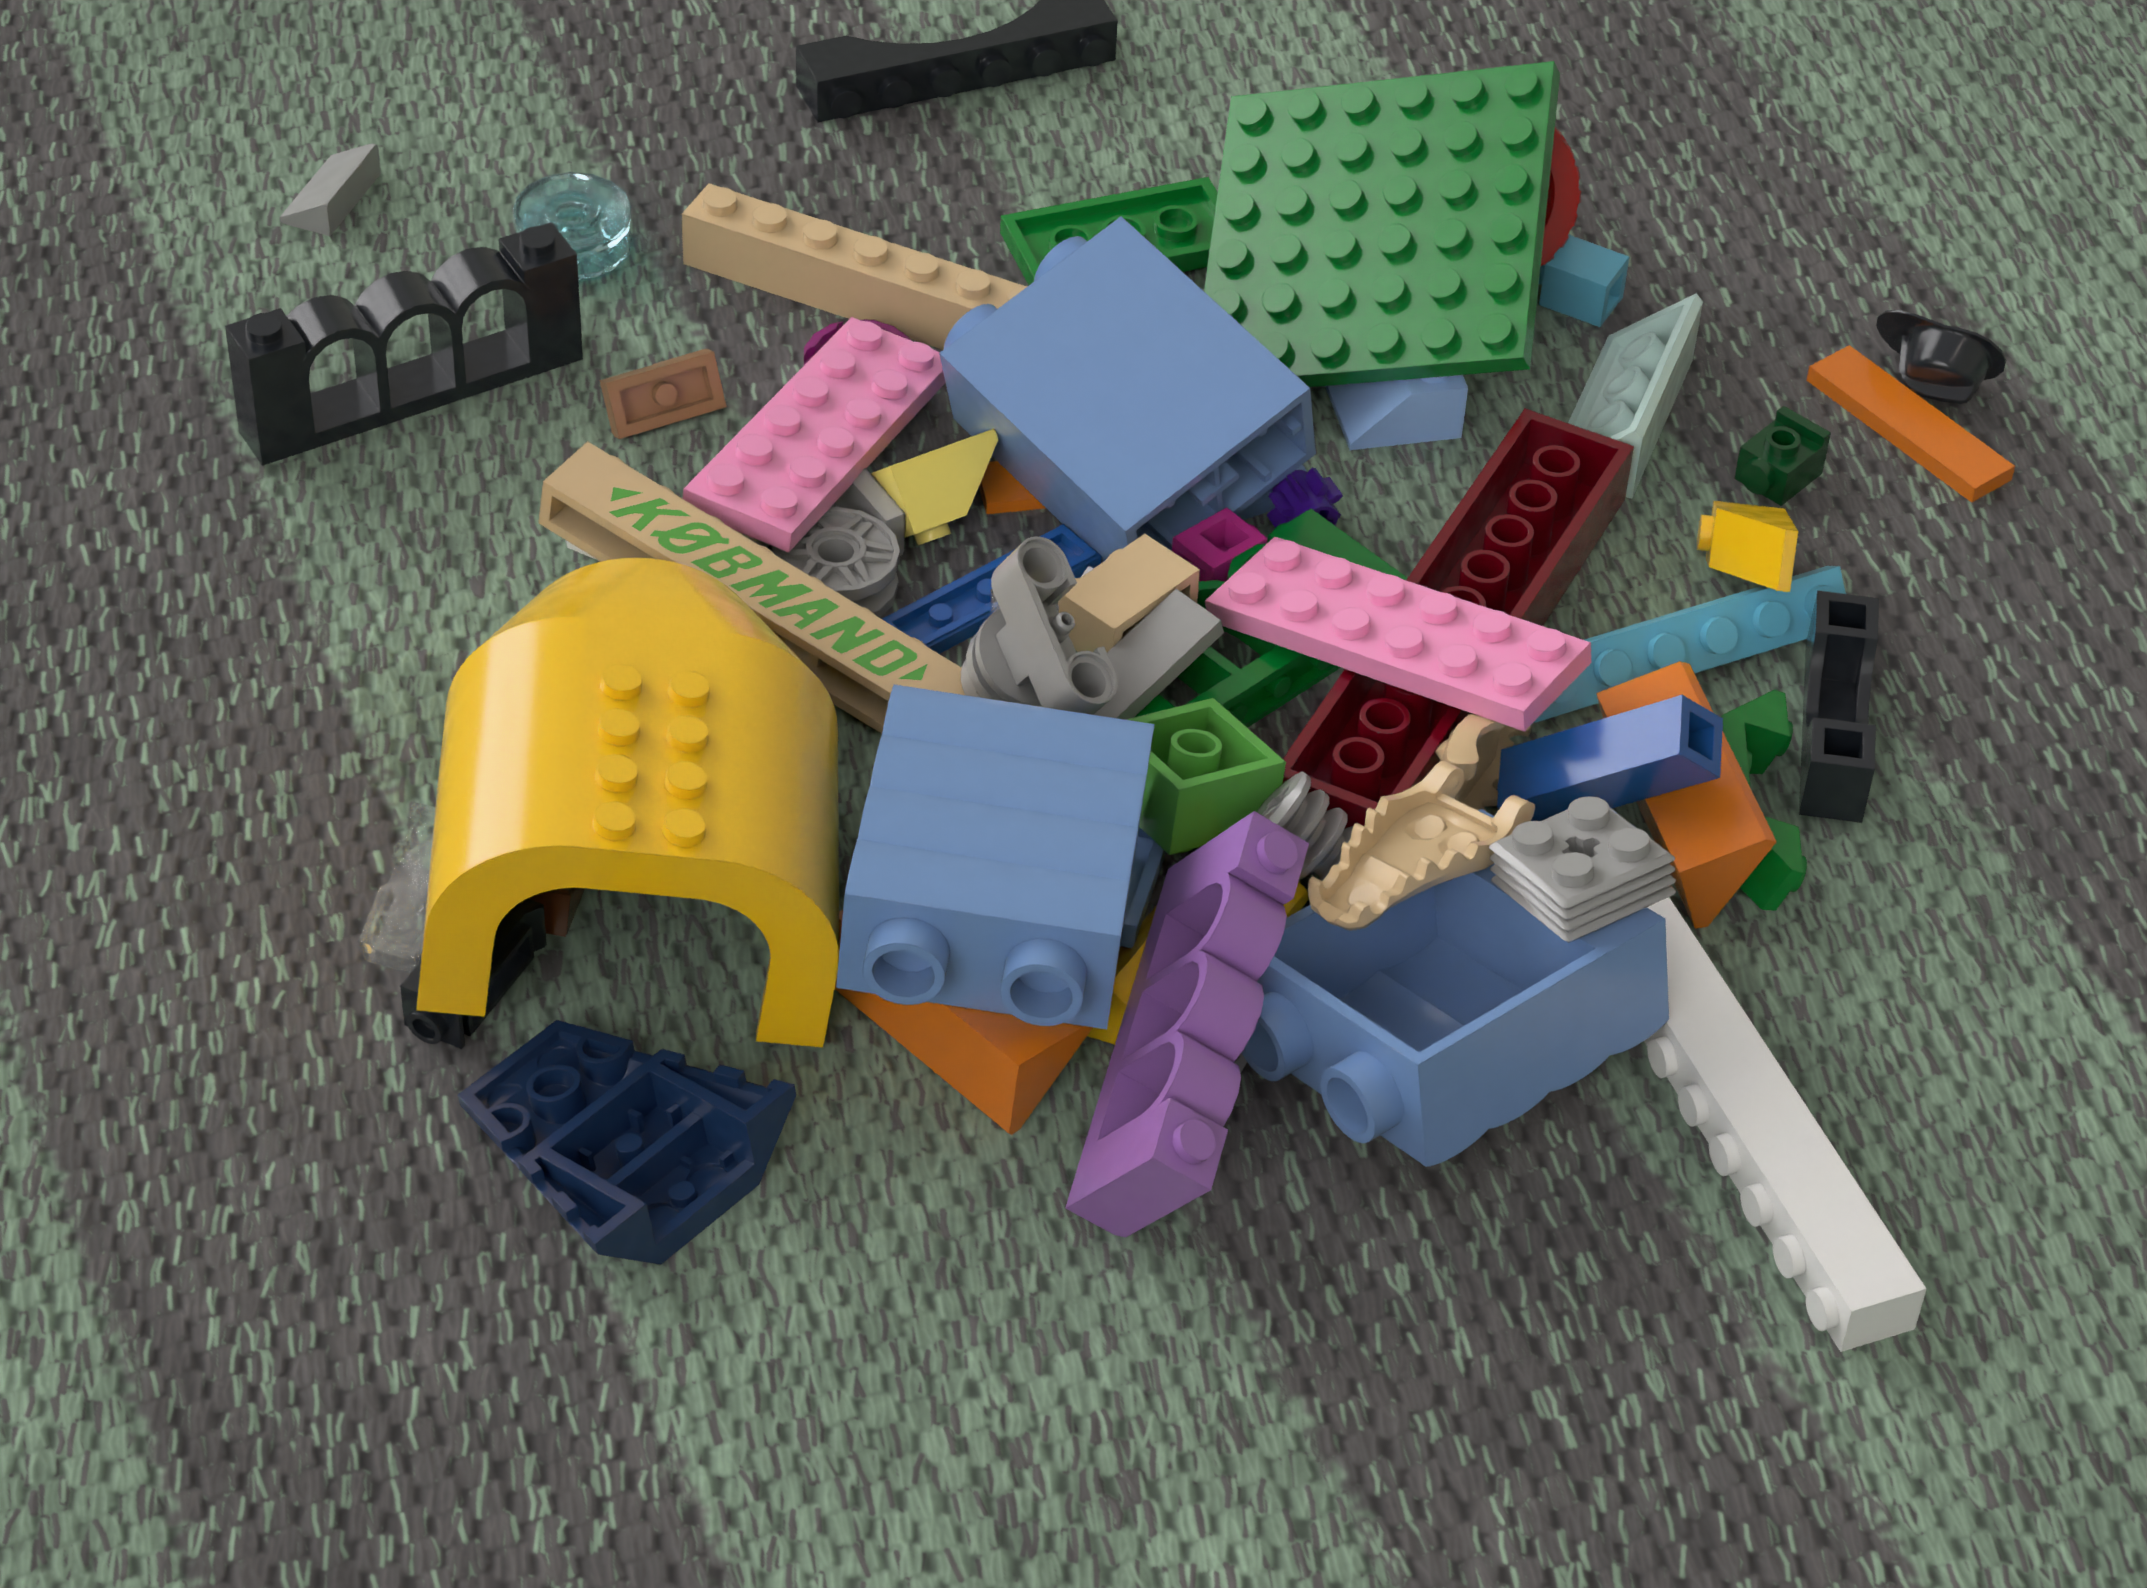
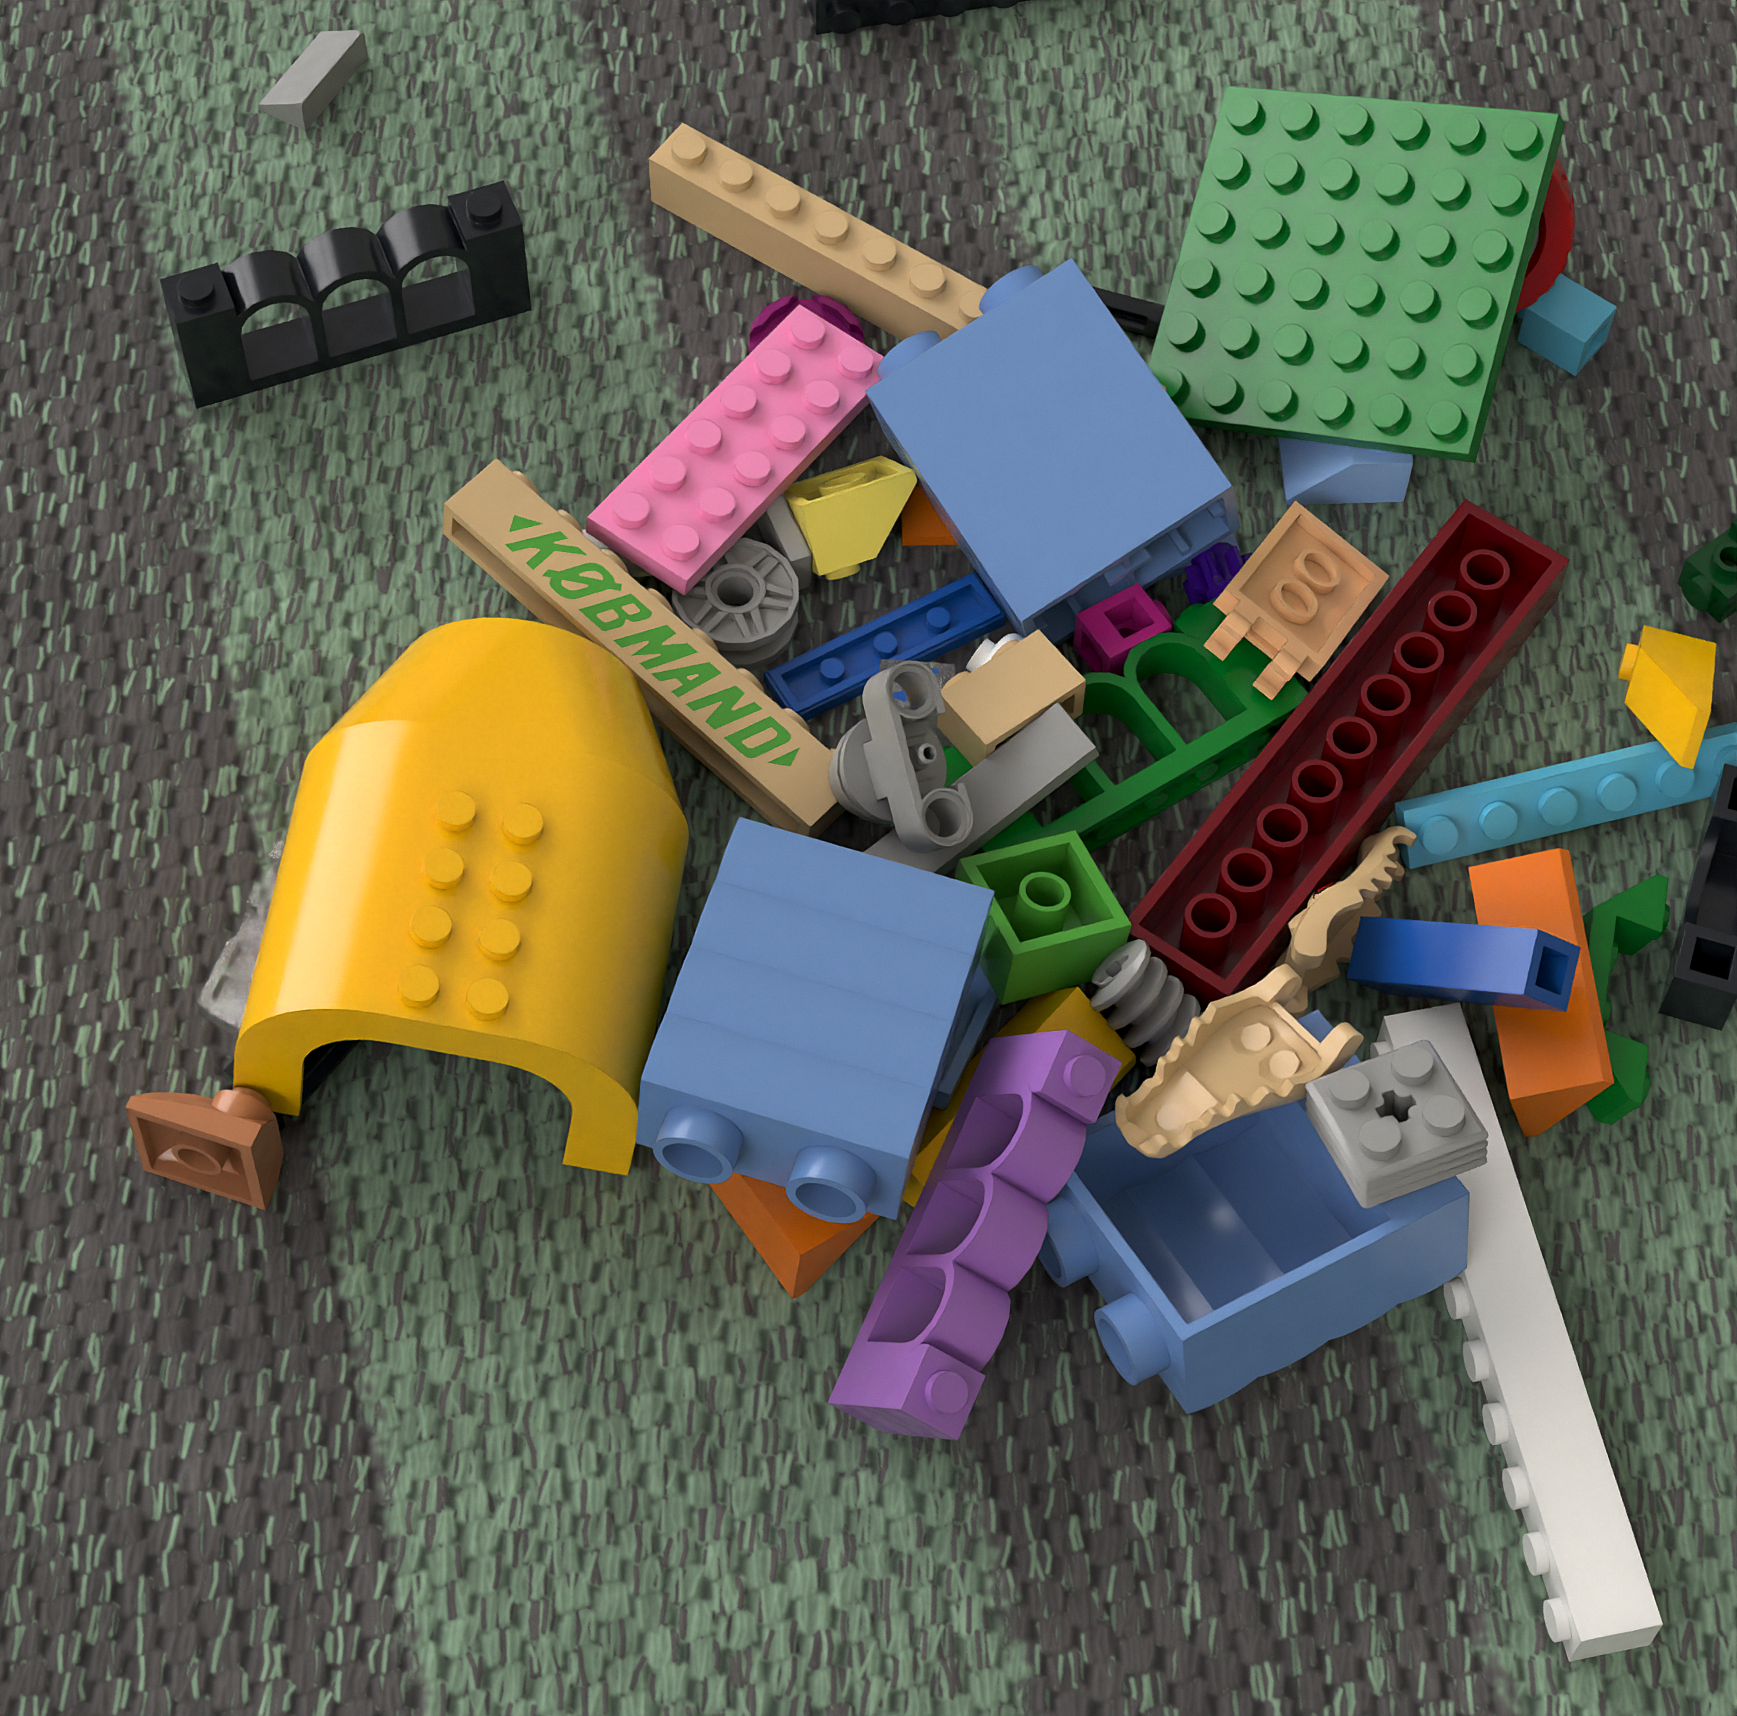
camera: 10 degrees right, 15 degrees up
(396, 1048) = (209, 1143): none -> nougat slope
(588, 214) = (544, 151): clear light blue wheel -> none
(627, 1139) = (414, 1266): dark blue wedge -> none
(663, 393) = (599, 370): medium nougat hinge -> none
(1170, 216) = (1091, 214): green plate -> none
(1380, 504) = (1295, 598): none -> light nougat tile
(1400, 633) = (1279, 777): bright pink plate -> none
(1639, 381) = (1591, 466): light aqua slope -> none

